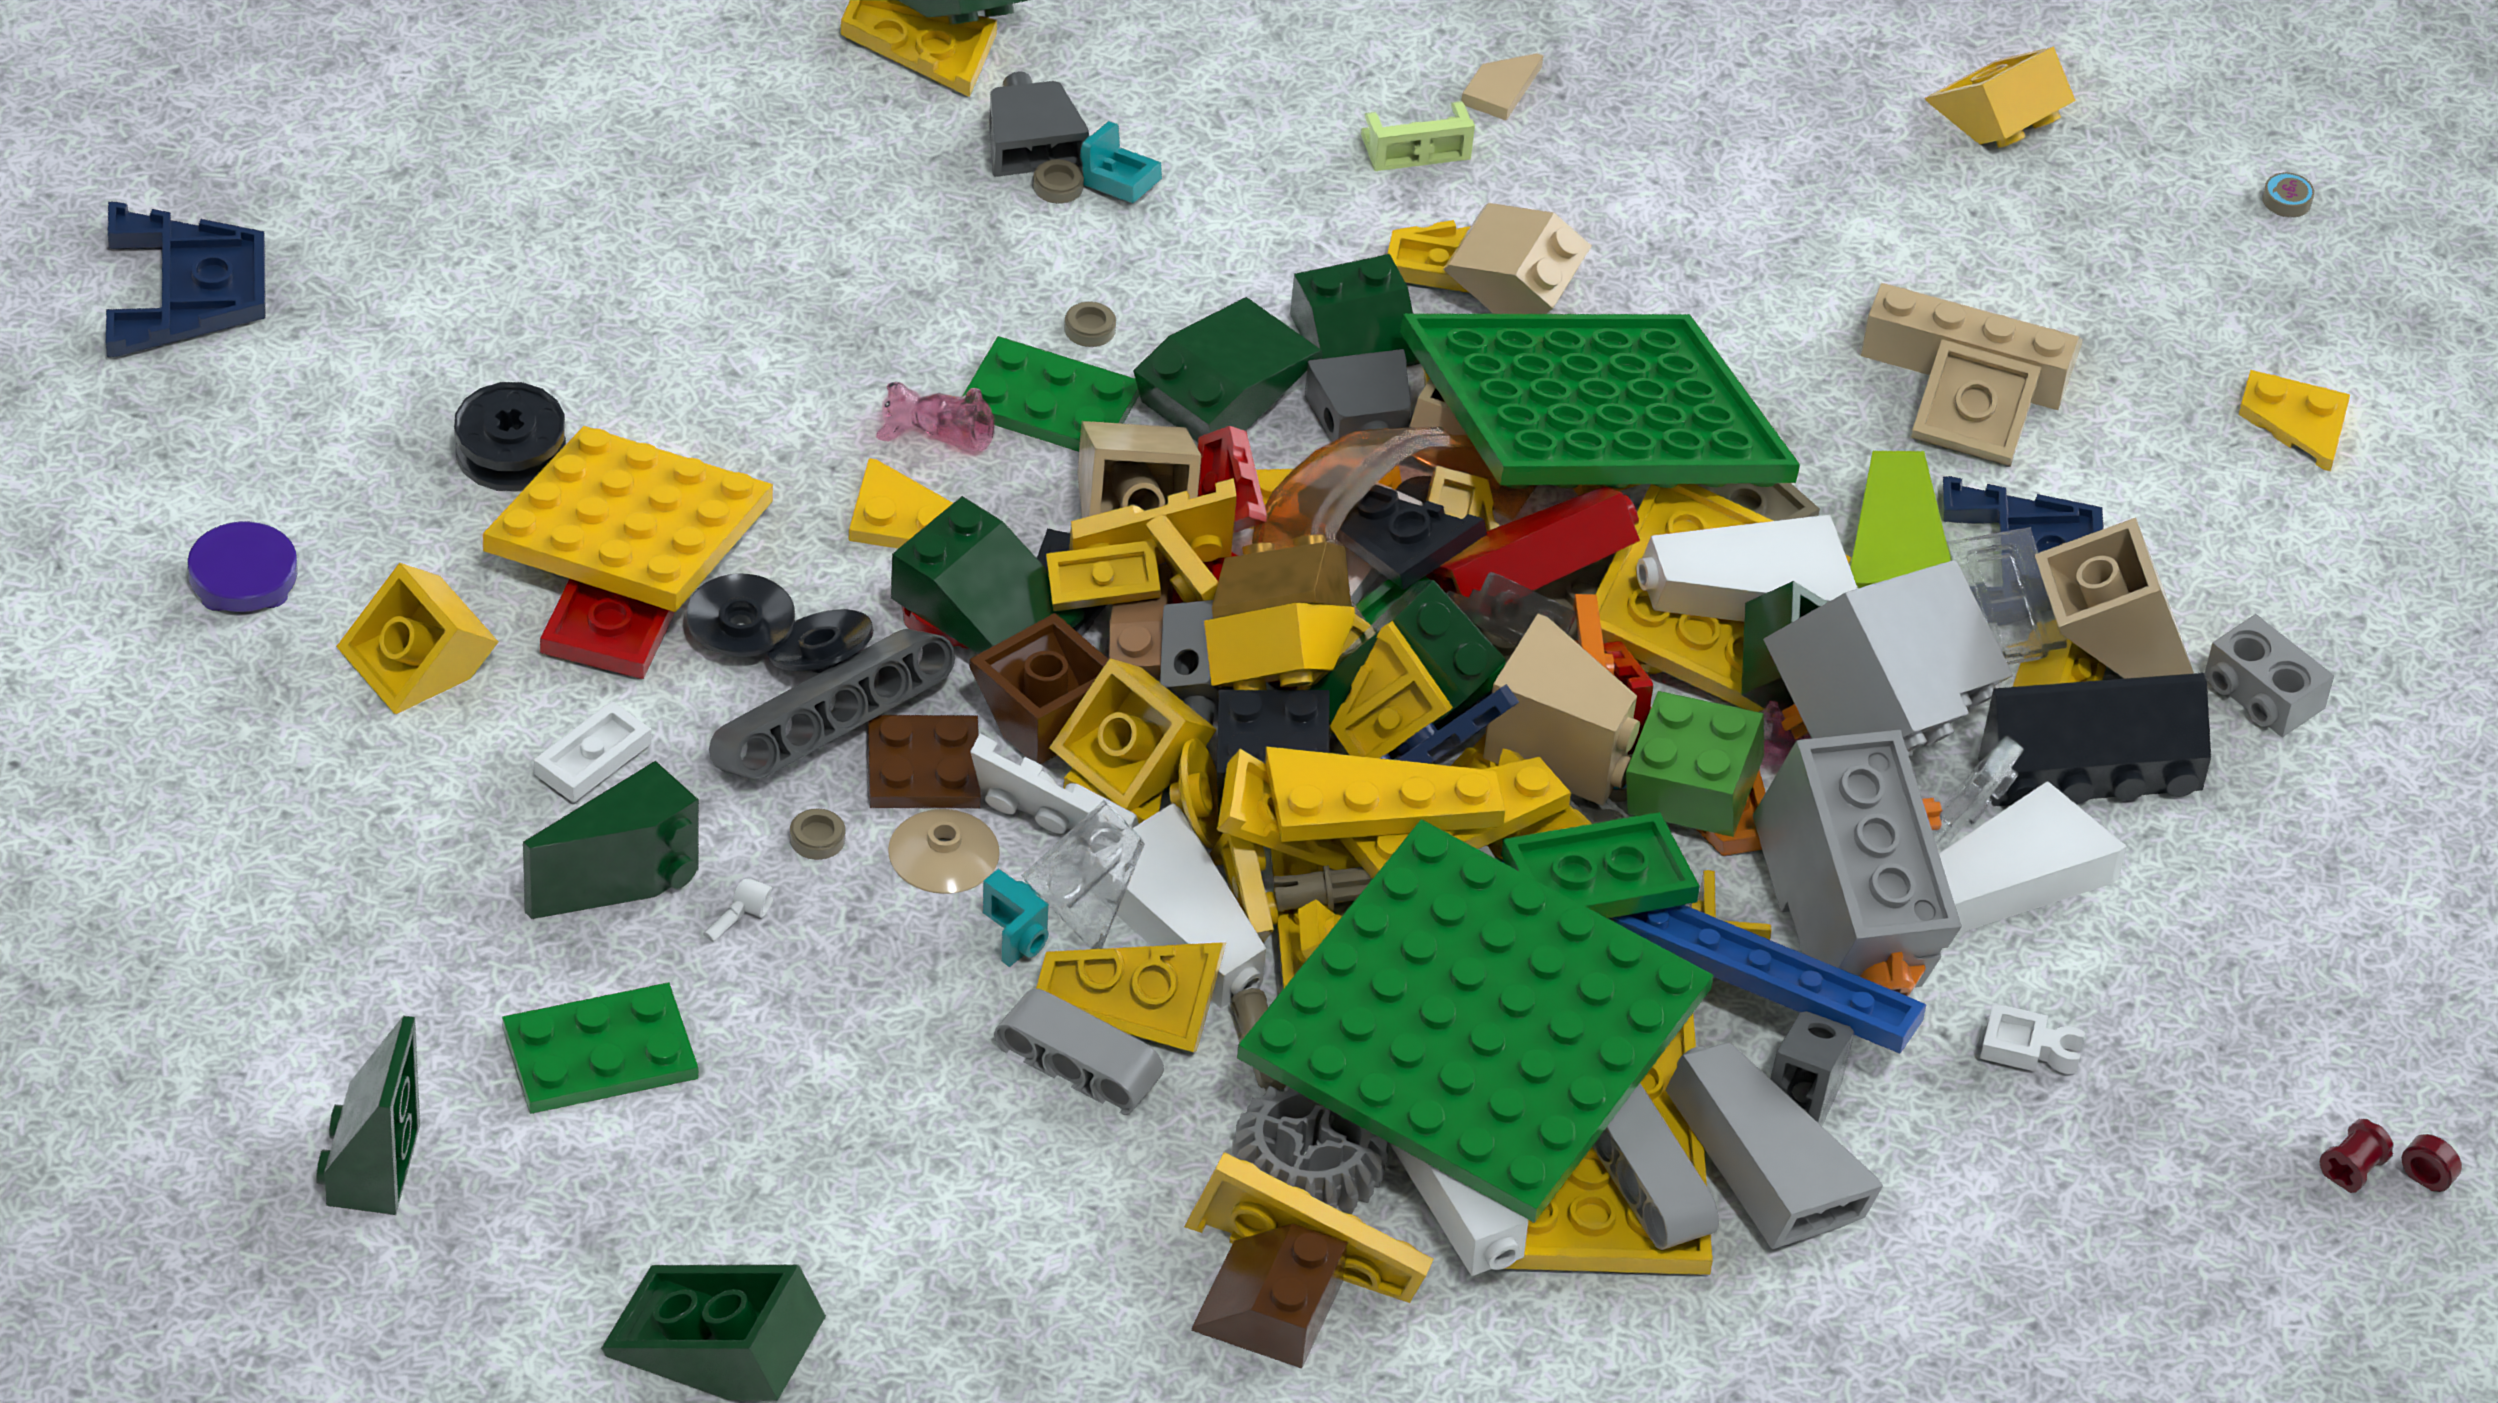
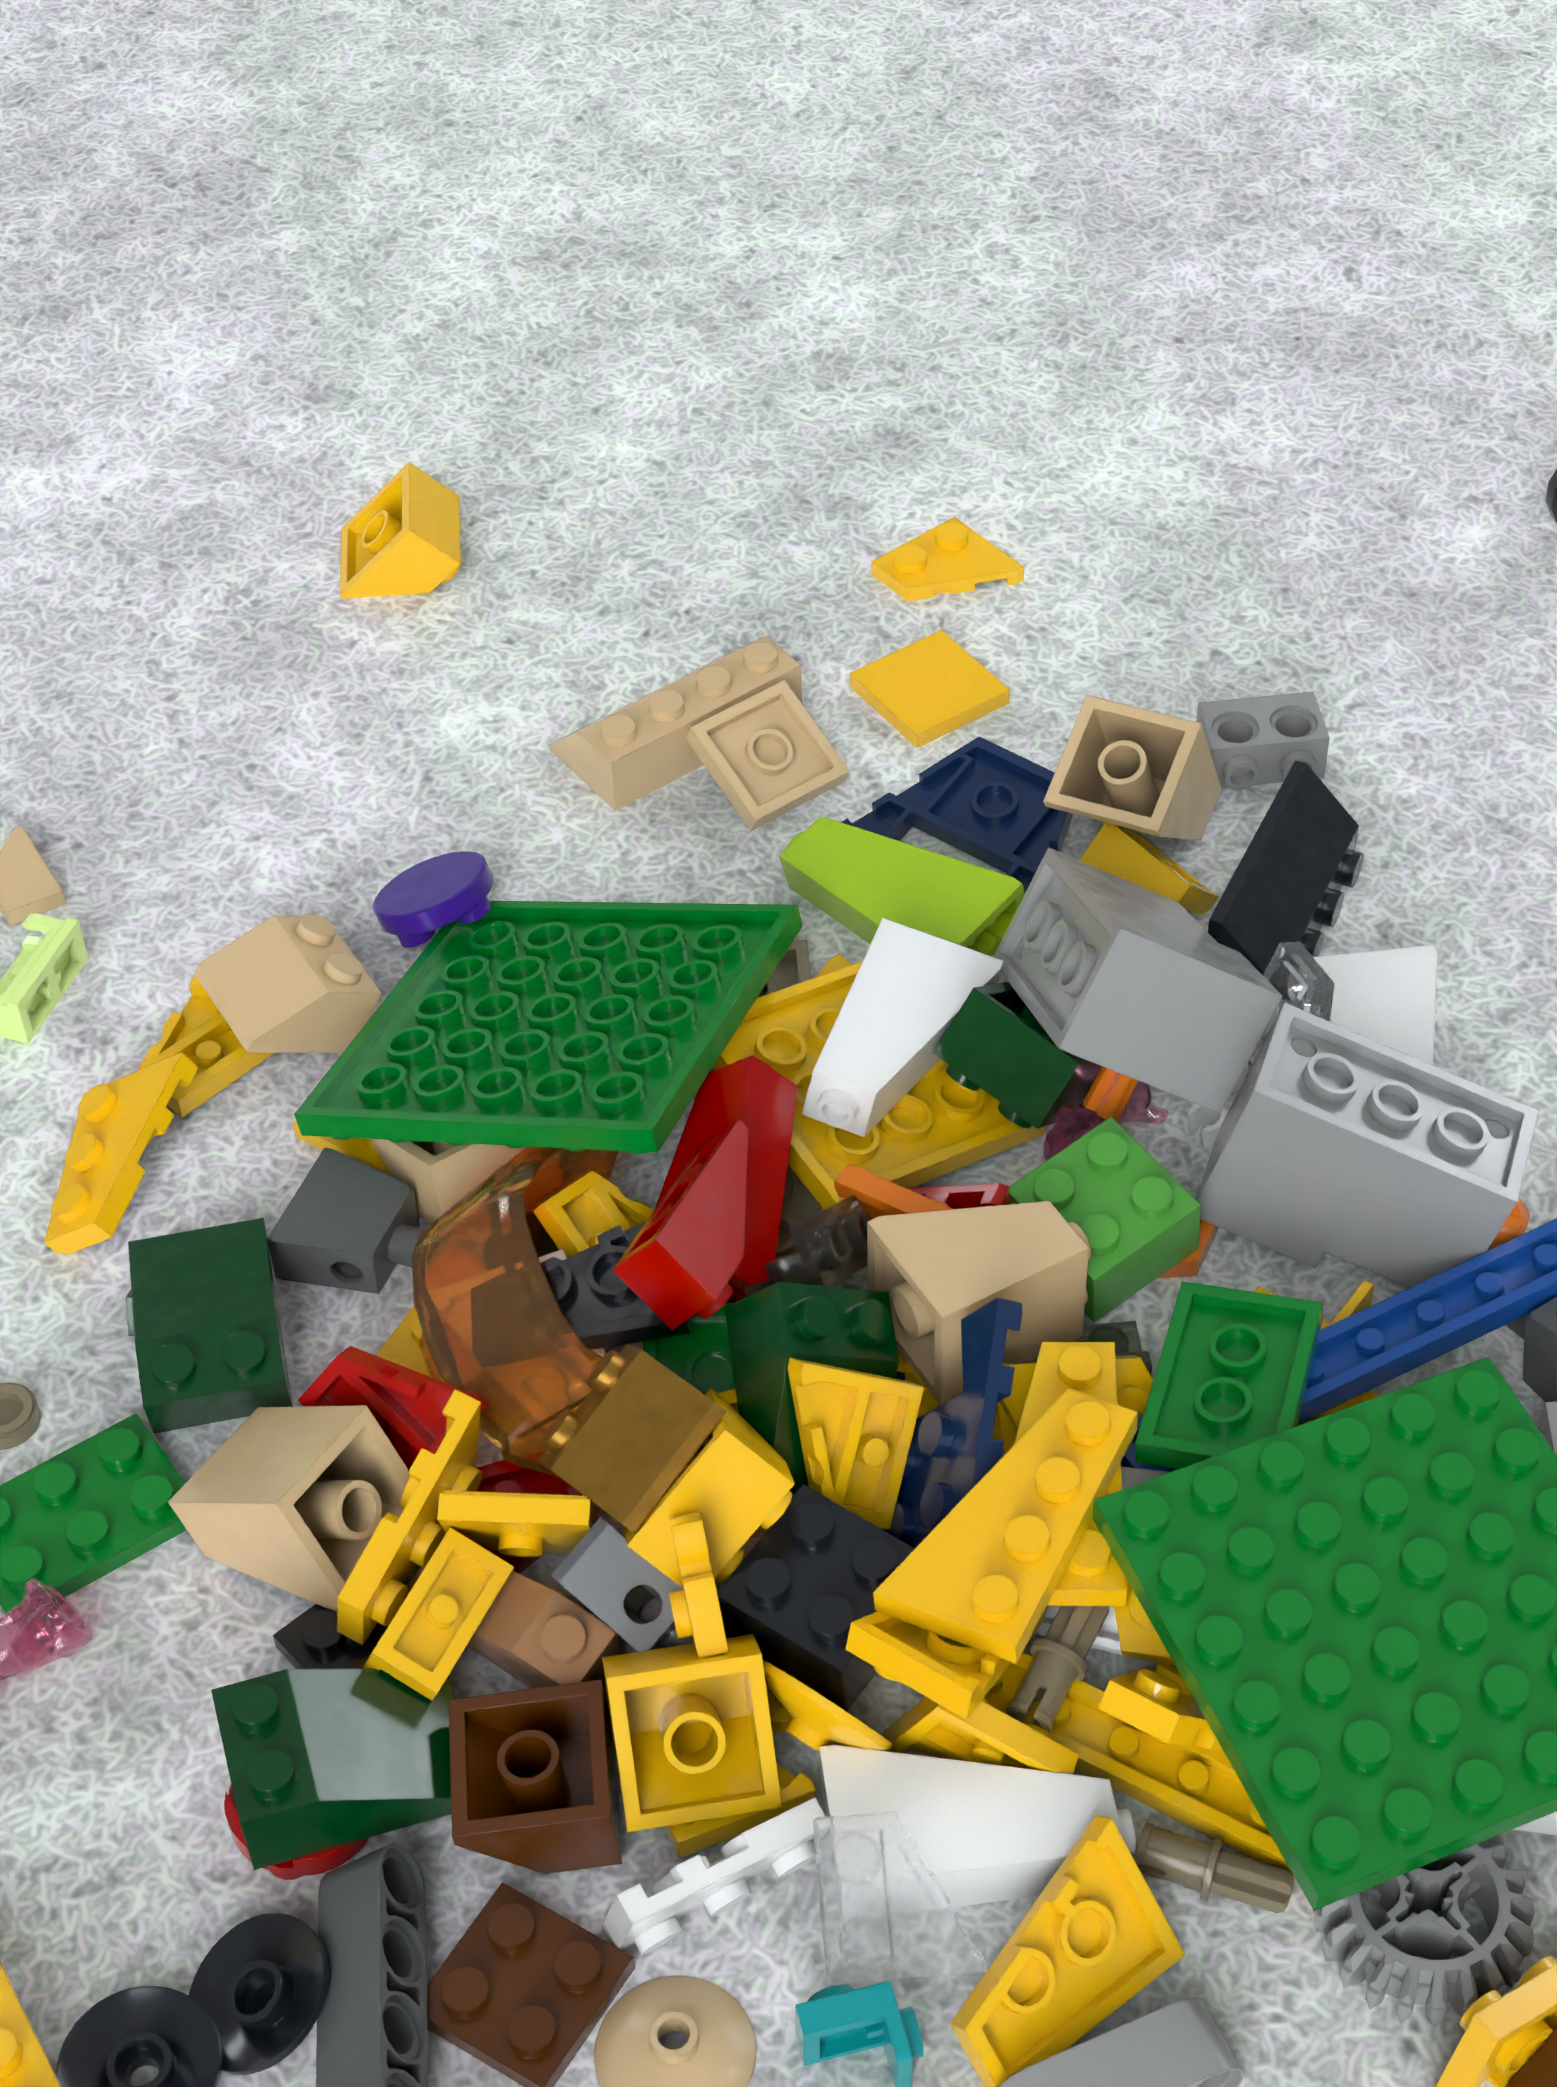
camera: 50 degrees left, 0 degrees up
(892, 507) = (117, 1776): yellow wing -> none
(1203, 673) = (696, 1606): none -> yellow plate
(1305, 251) = (105, 1150): none -> yellow wing
(1353, 308) = (225, 1162): dark green slope -> none
(1443, 534) = (694, 1234): none -> red slope
(1671, 292) = (434, 896): none -> dark purple tile
(2010, 592) = (1017, 841): clear piece -> none
(2149, 467) = (929, 688): none -> yellow tile
(2288, 194) = (681, 435): dark tan tile -> none

